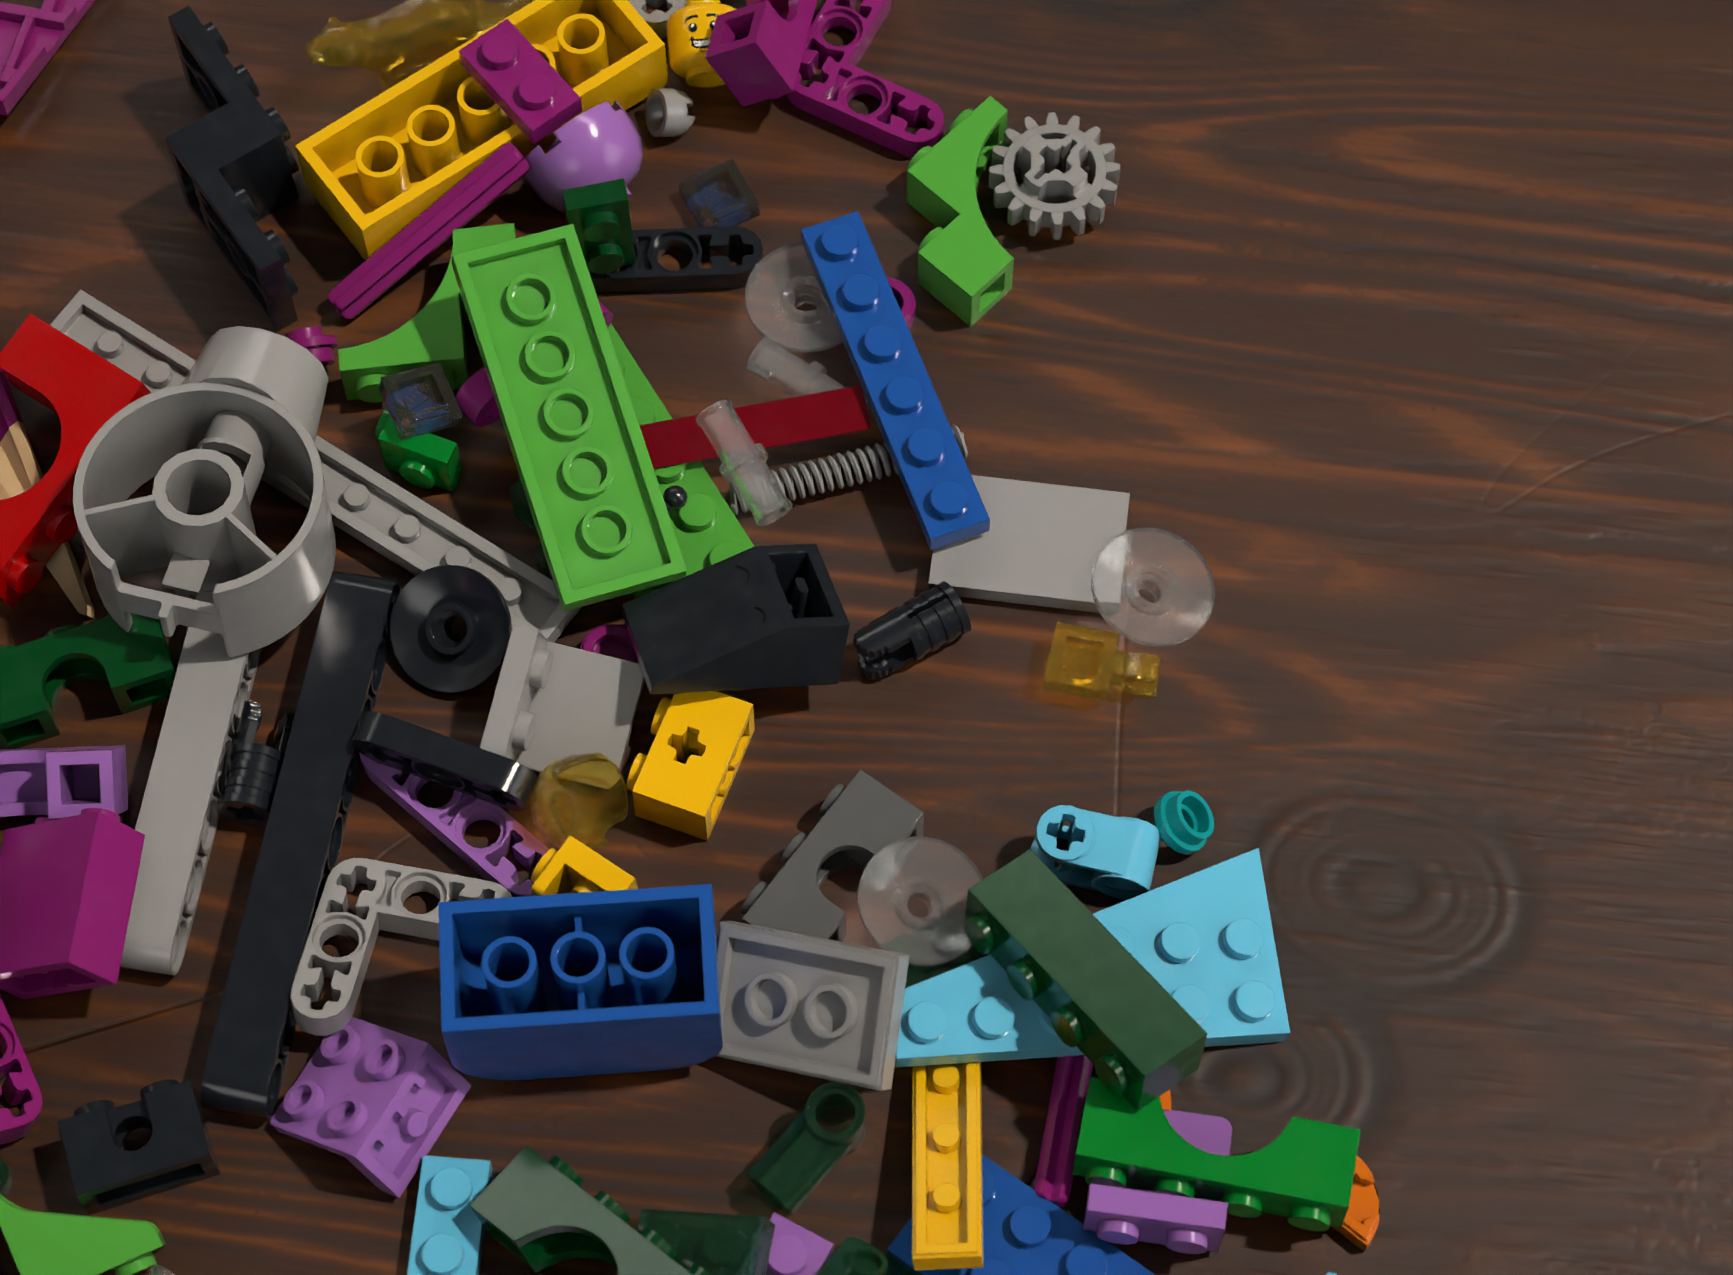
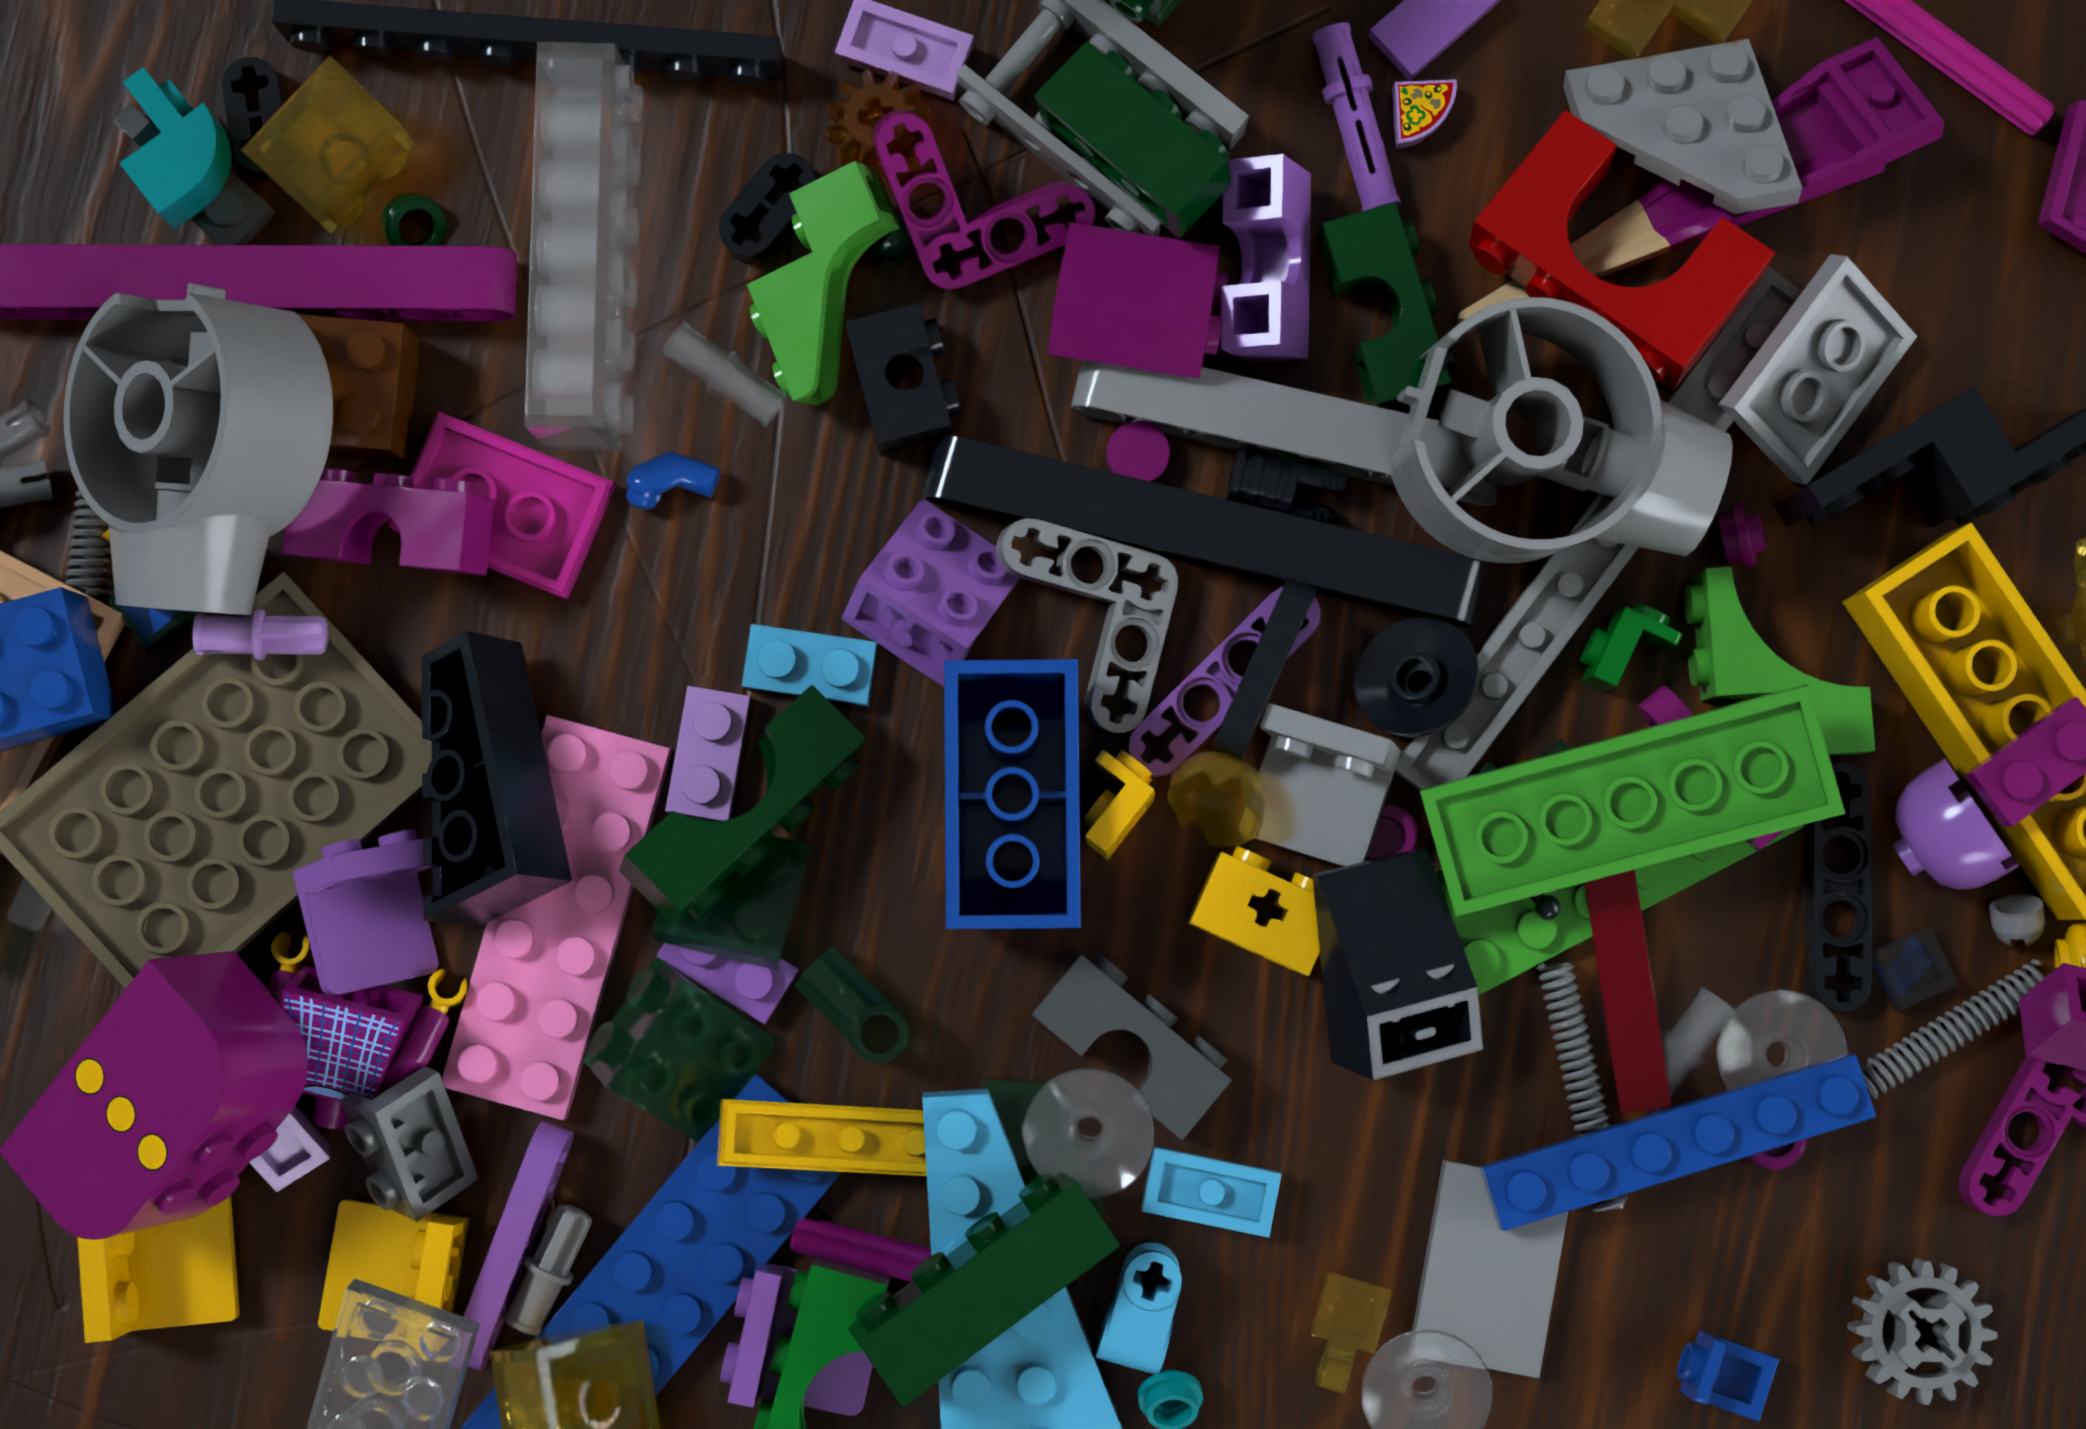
camera: 90 degrees right, 20 degrees up
(144, 286) = (1818, 369): none -> light grey plate
(218, 908) = (1138, 451): none -> magenta tile
(420, 401) = (1663, 650): clear smoke tile -> none
(428, 231) = (1874, 663): magenta axle -> none
(601, 224) = (1856, 842): dark green plate -> none
(716, 106) = (1990, 1014): none -> light grey piece
(744, 462) = (1582, 980): clear pin -> none
(810, 1004) = (986, 1016): light grey tile -> none
(911, 631) = (1393, 1141): black hinge -> none
(960, 257) = (1817, 1225): bright green arch -> none
(975, 792) = (1211, 1191): none -> medium azure plate
(1110, 333) = (1726, 1374): none -> blue bracket

